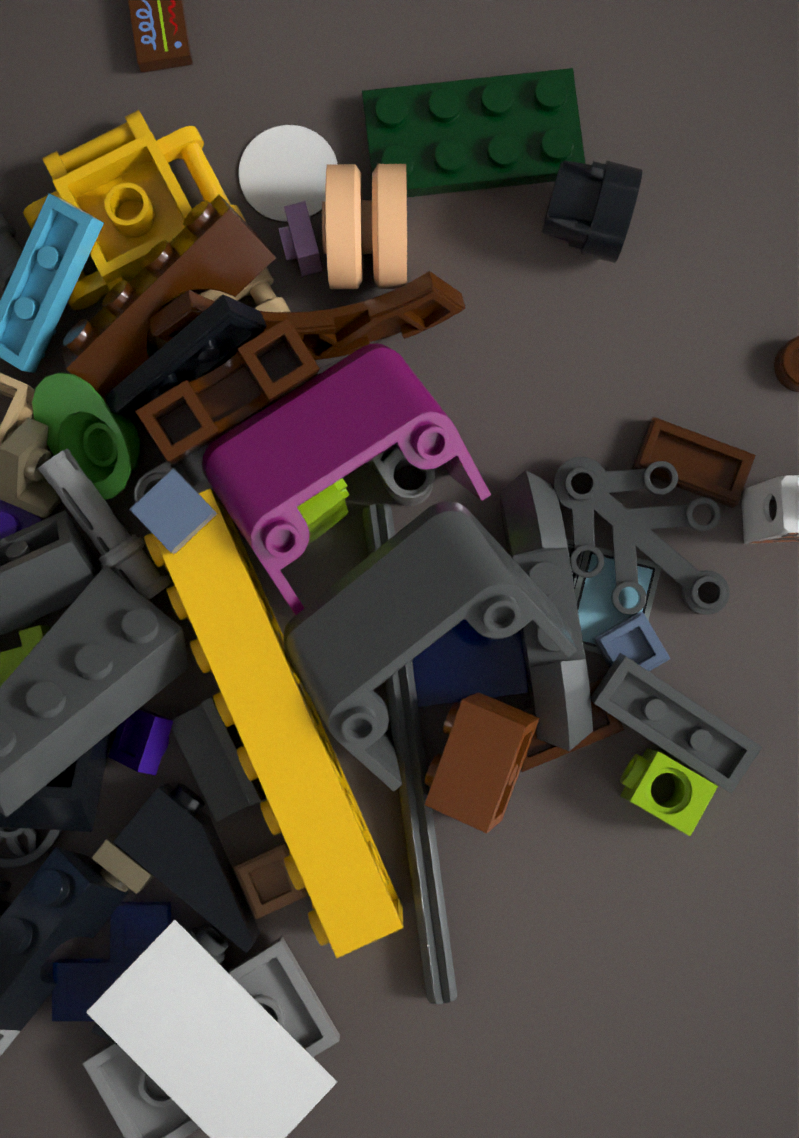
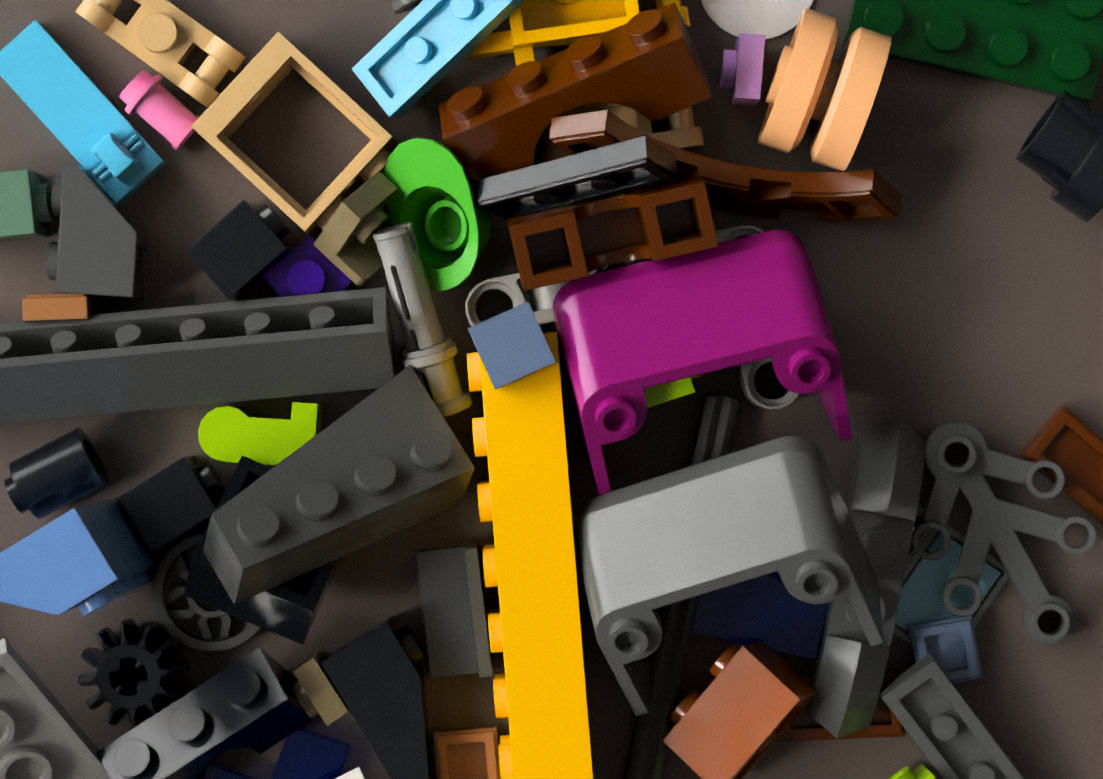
camera: 20 degrees right, 5 degrees up
(141, 741) = (382, 567): dark purple plate -> none

